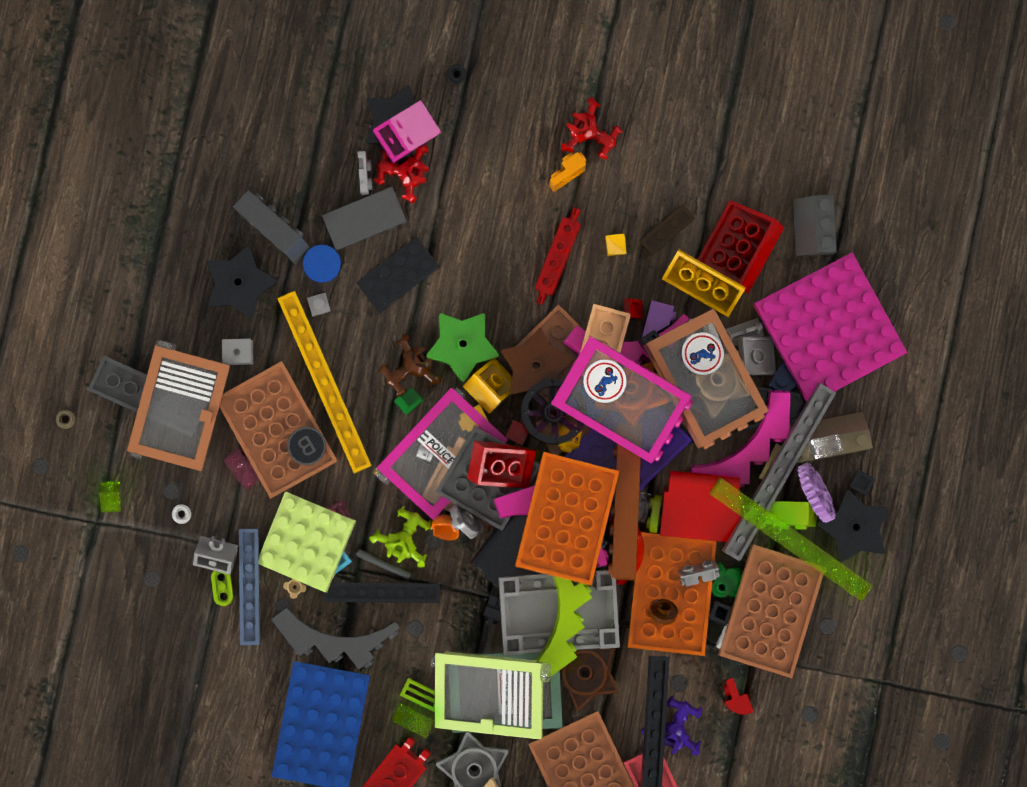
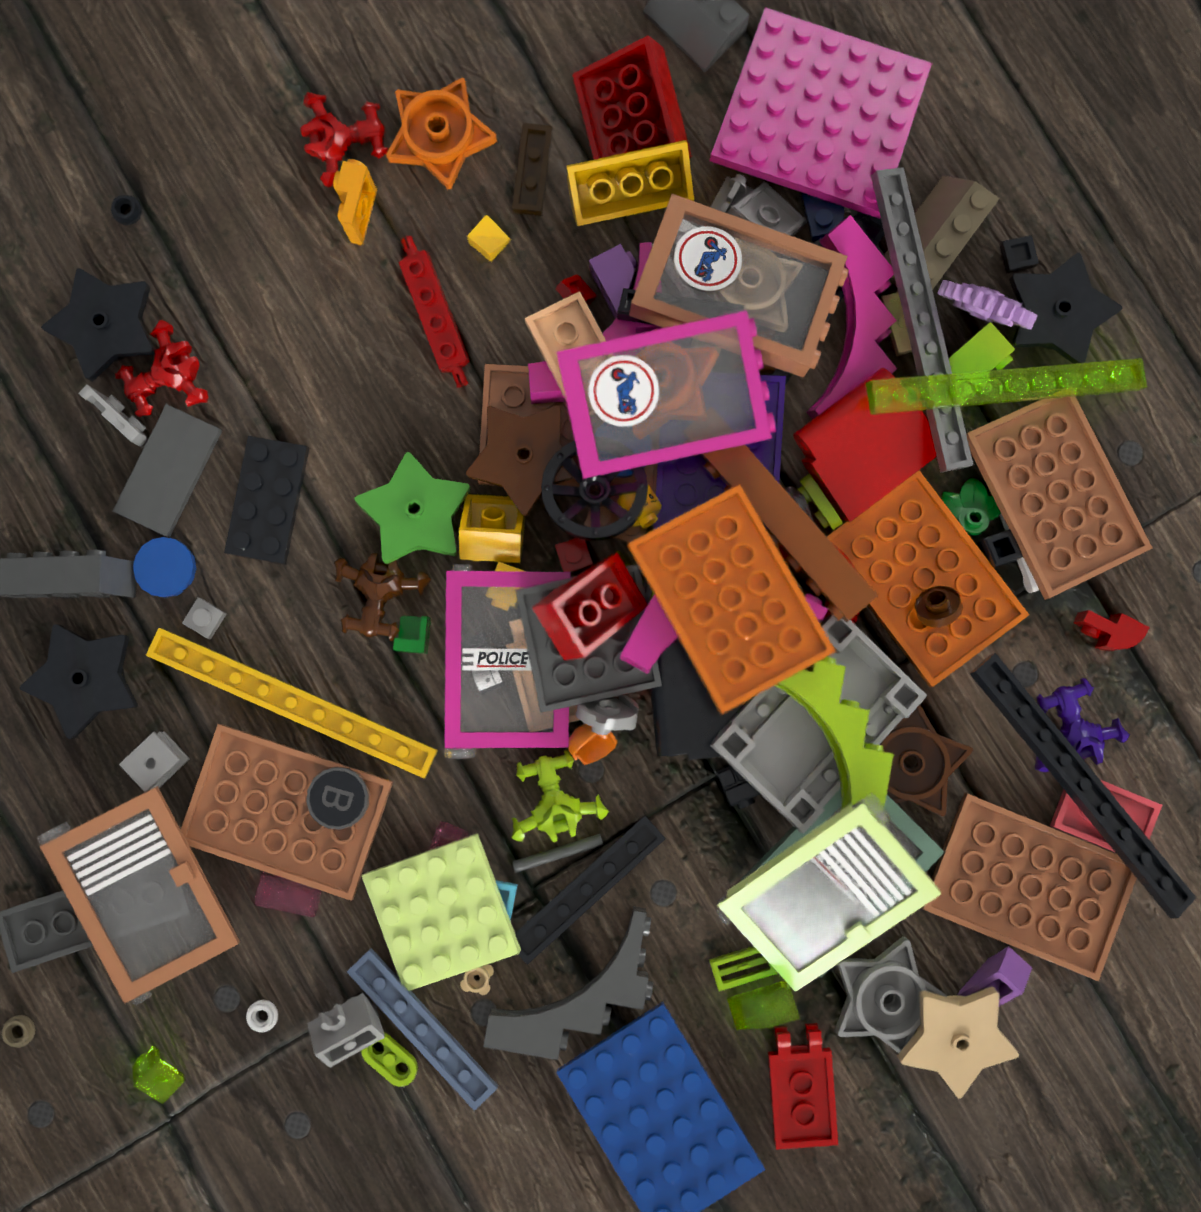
camera: 40 degrees left, 0 degrees up
(406, 131) = (117, 321): dark pink slope -> none
(641, 157) = (436, 111): none -> orange plate
(707, 570) = (942, 512): light grey hinge -> none
(825, 446) = (950, 238): clear bracket -> none

